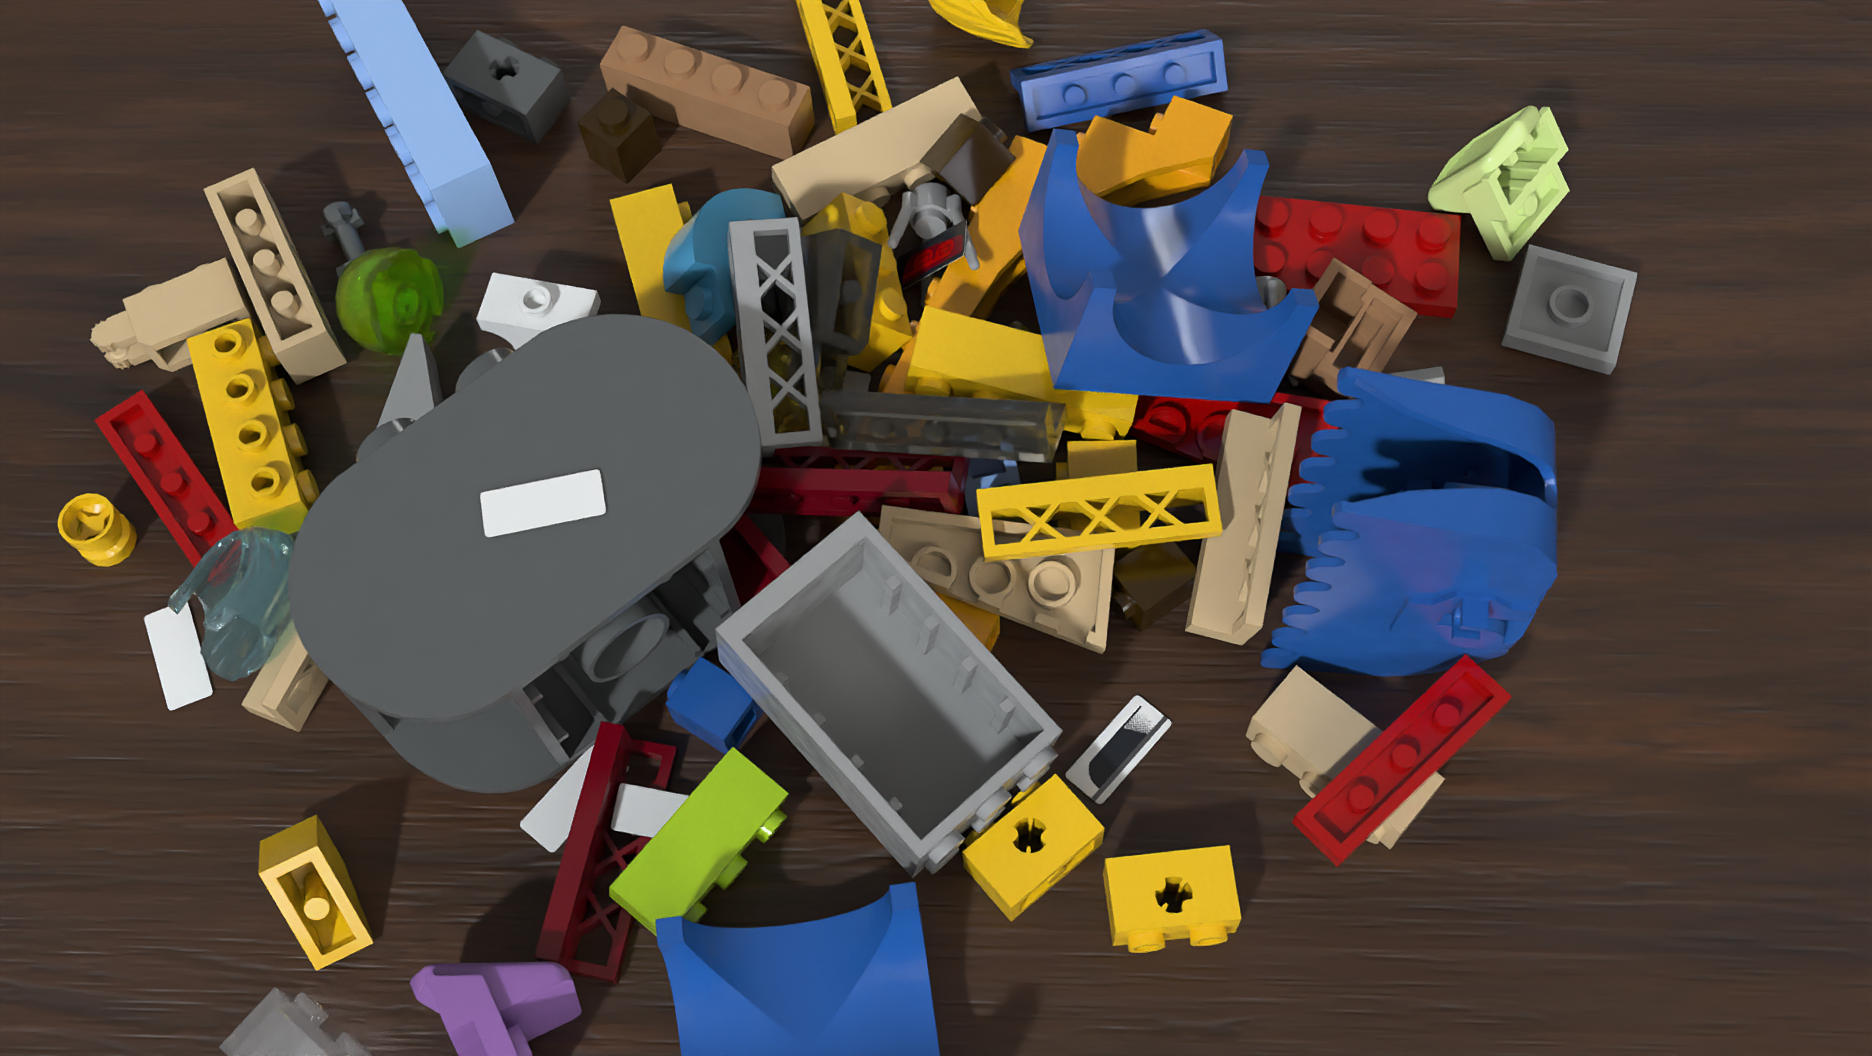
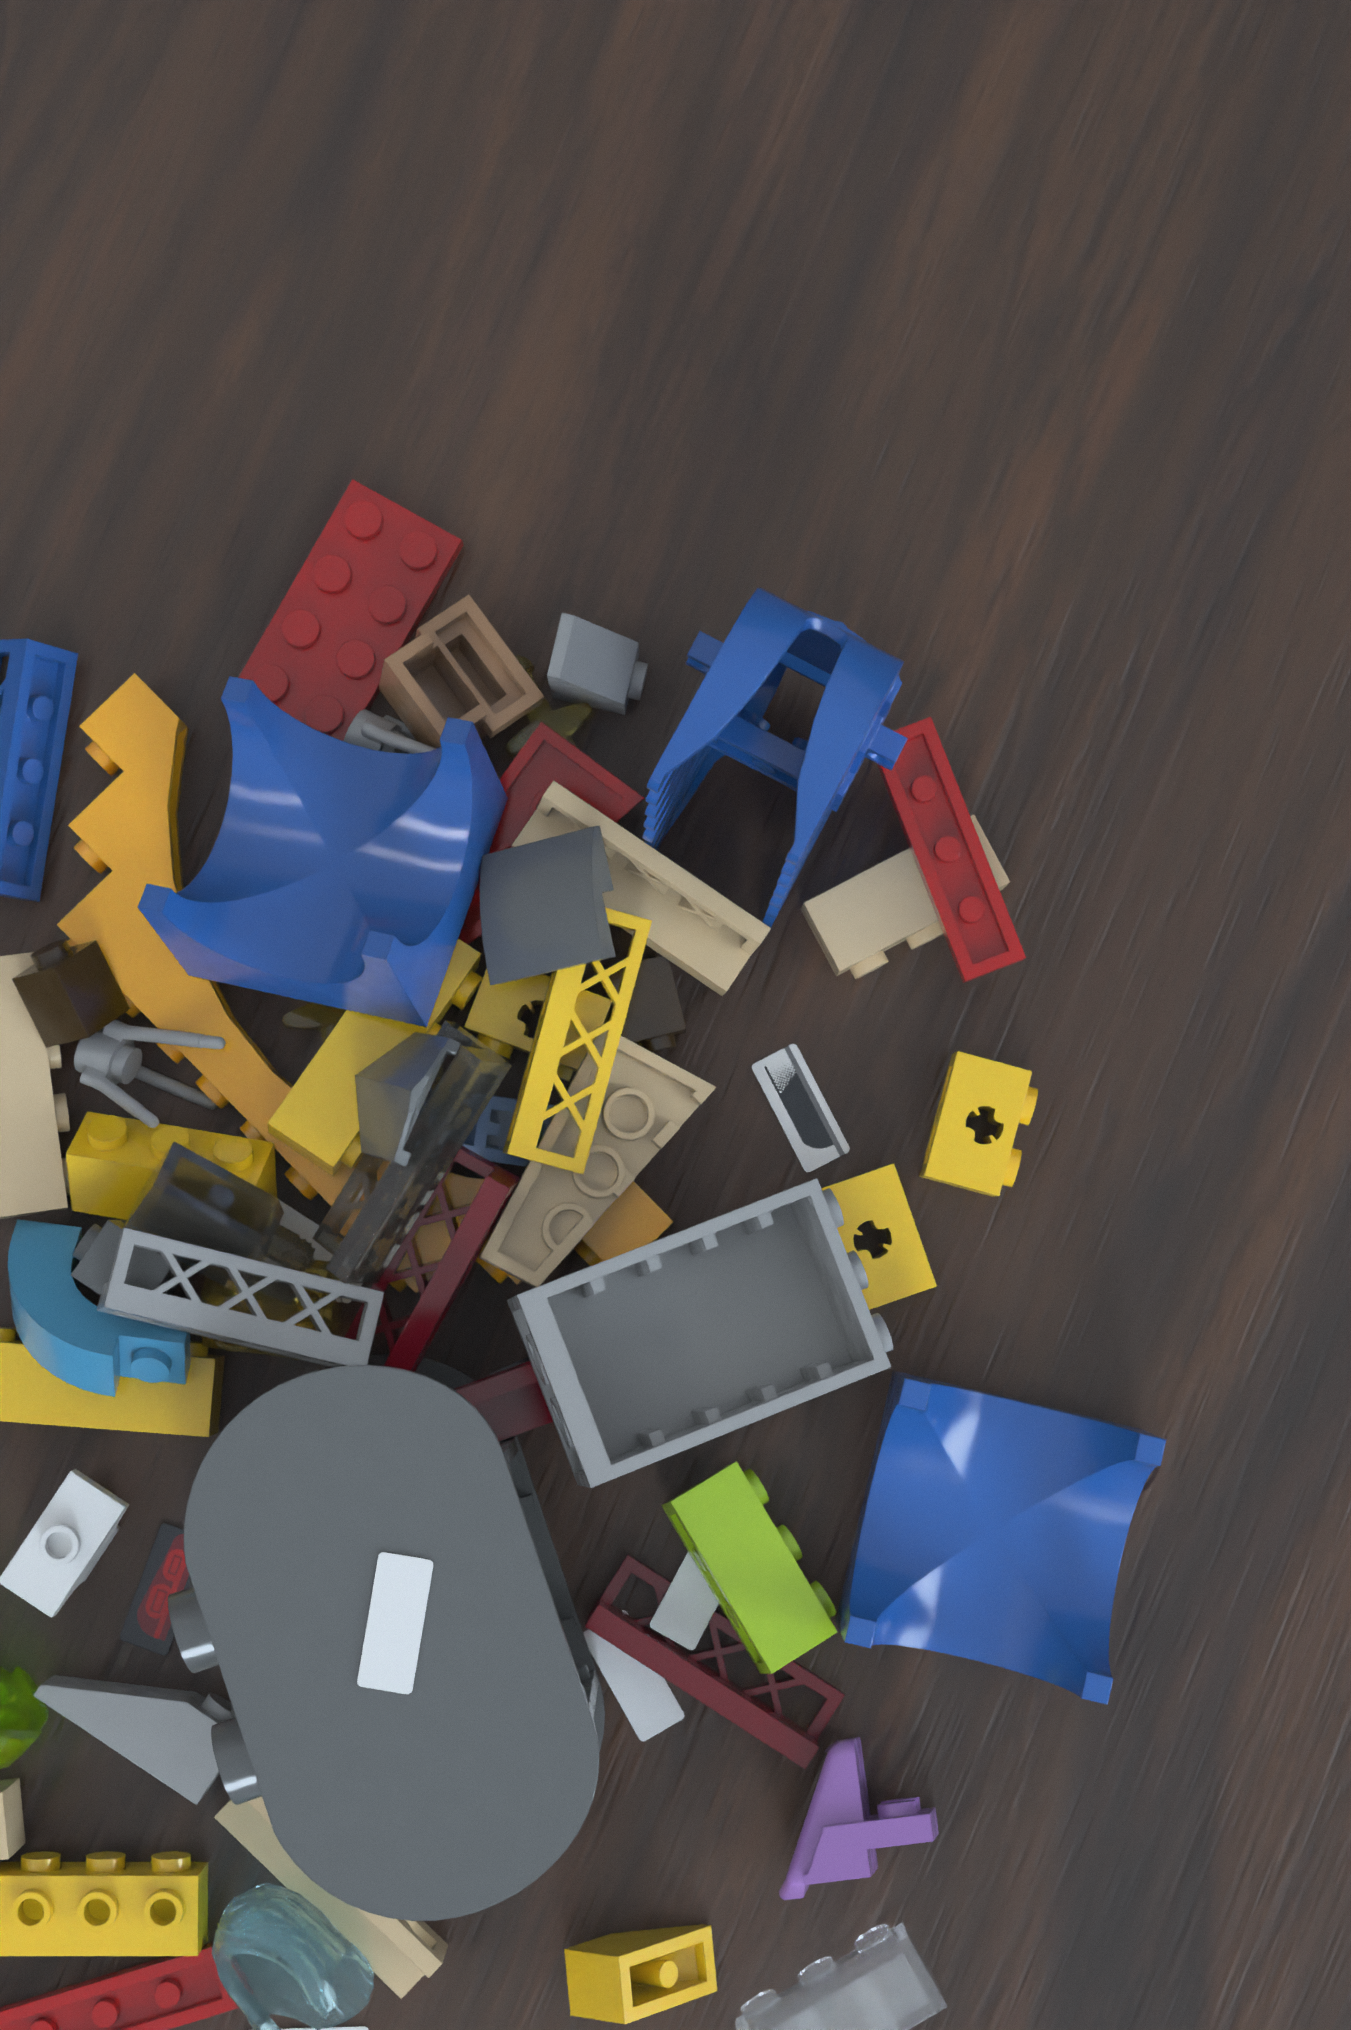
camera: 75 degrees left, 20 degrees up
(712, 705) = (601, 1511): blue brick -> none
(932, 255) = (169, 1078): sticker -> none
(991, 379) = (394, 1091): none -> dark grey slope
(1193, 441) = (545, 906): none -> dark grey slope
(1506, 180) = (337, 418): yellowish green piece -> none
(1569, 309) = (512, 423): light grey plate -> none

